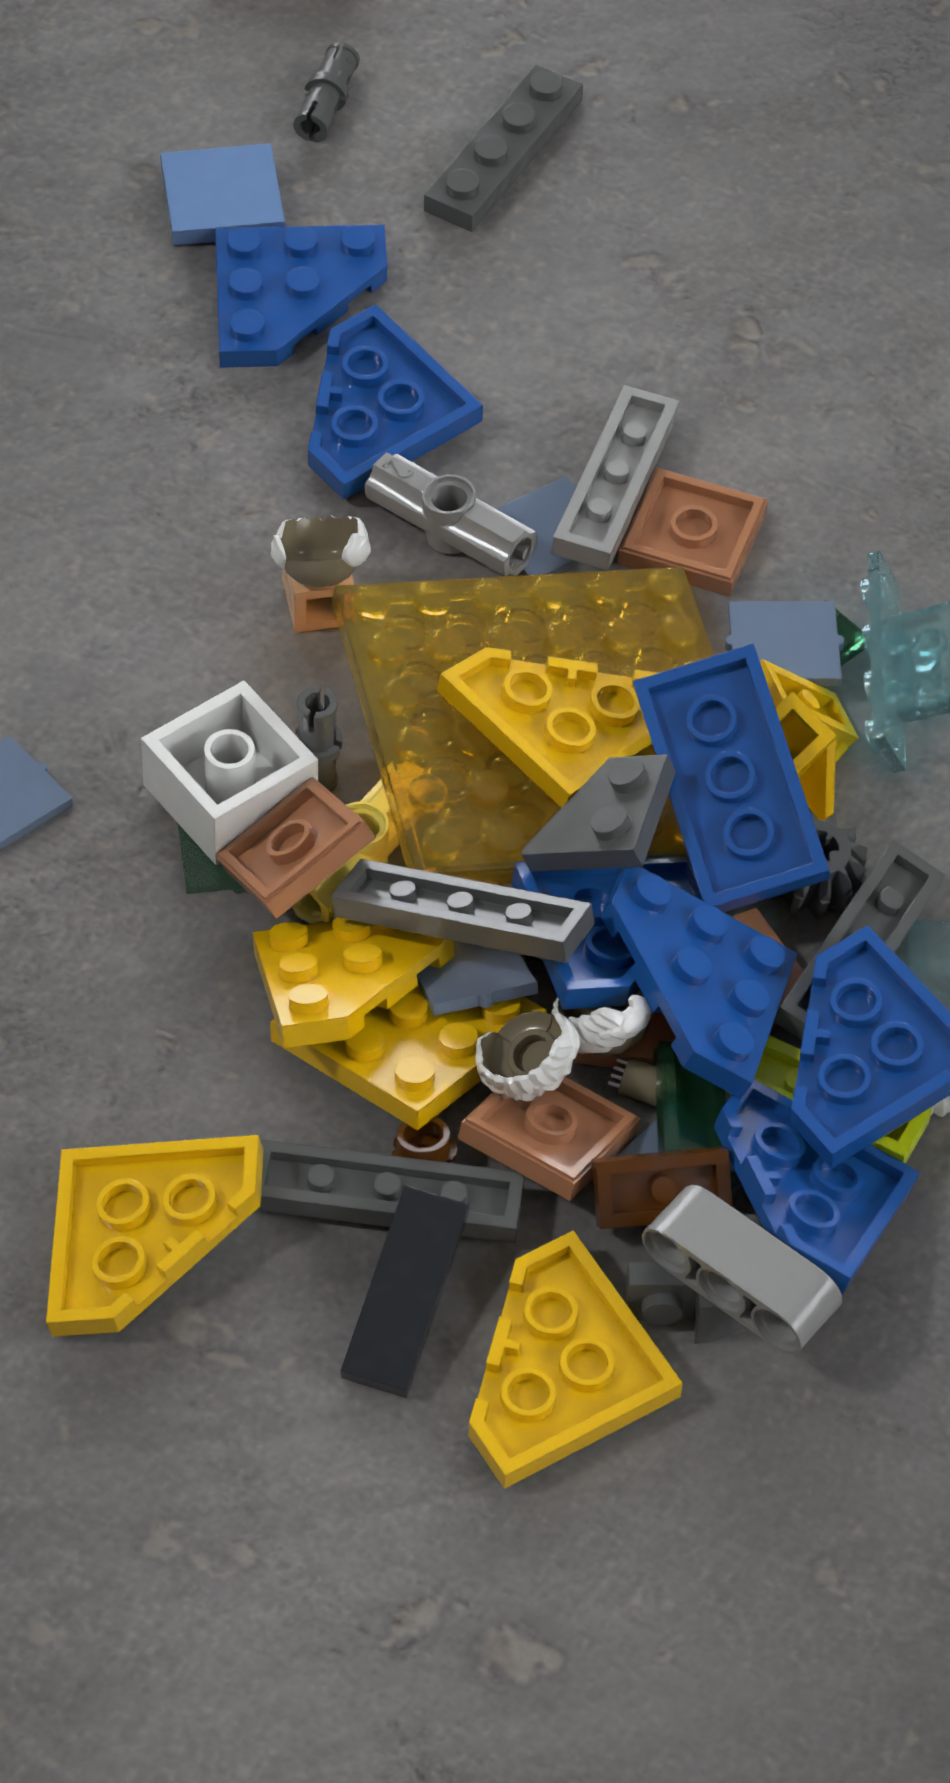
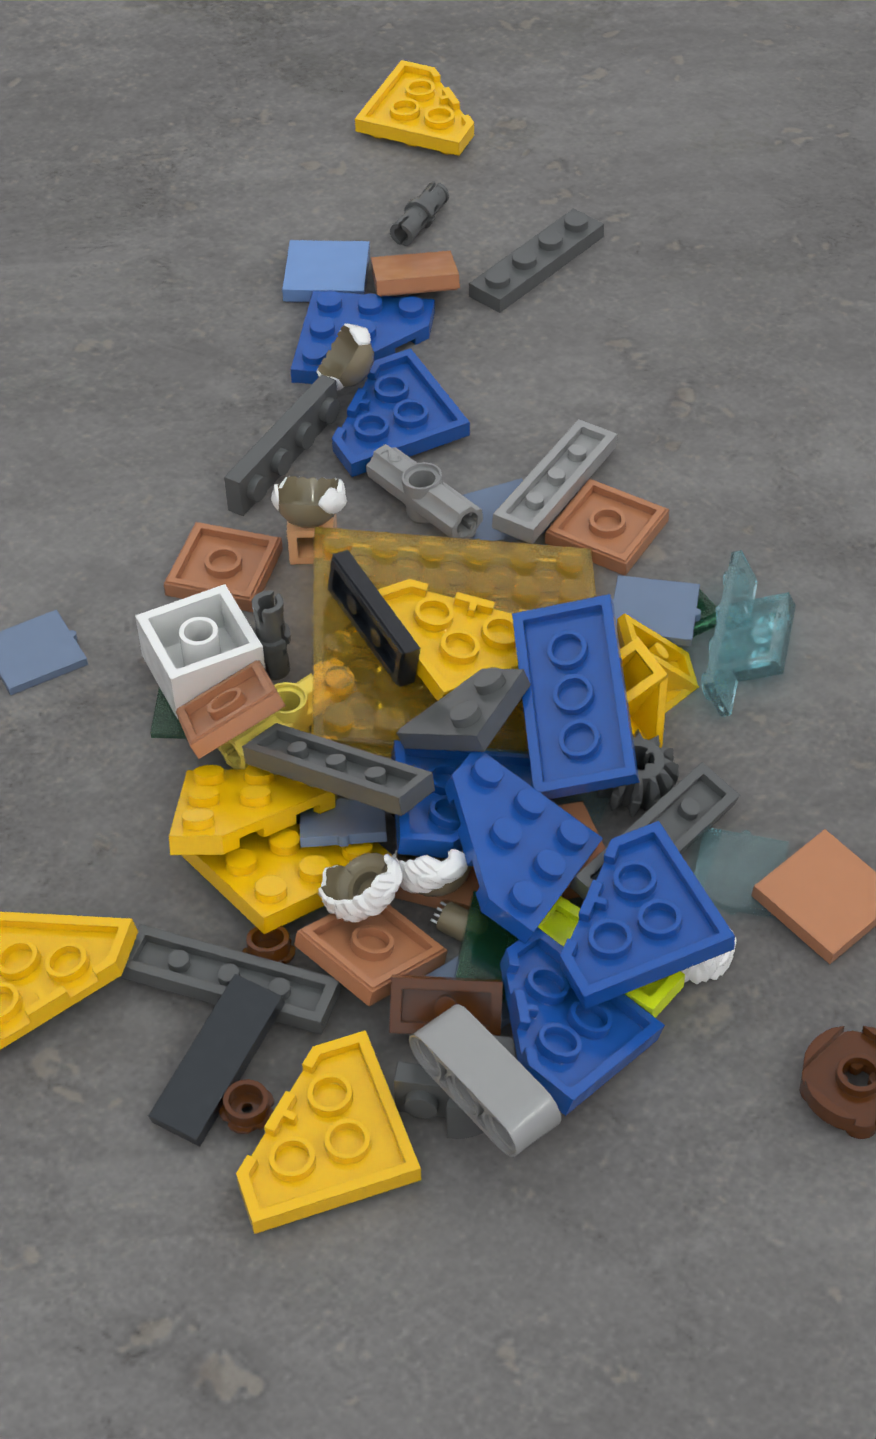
camera: 15 degrees right, 5 degrees down
(209, 645) = (222, 557): none -> nougat tile
(239, 474) = (281, 445): none -> dark grey plate
(301, 332) = (349, 357): none -> dark tan hair
(348, 188) = (415, 273): none -> nougat tile
(455, 706) = (373, 618): none -> black tile
(459, 1328) = (242, 1095): none -> reddish brown plate

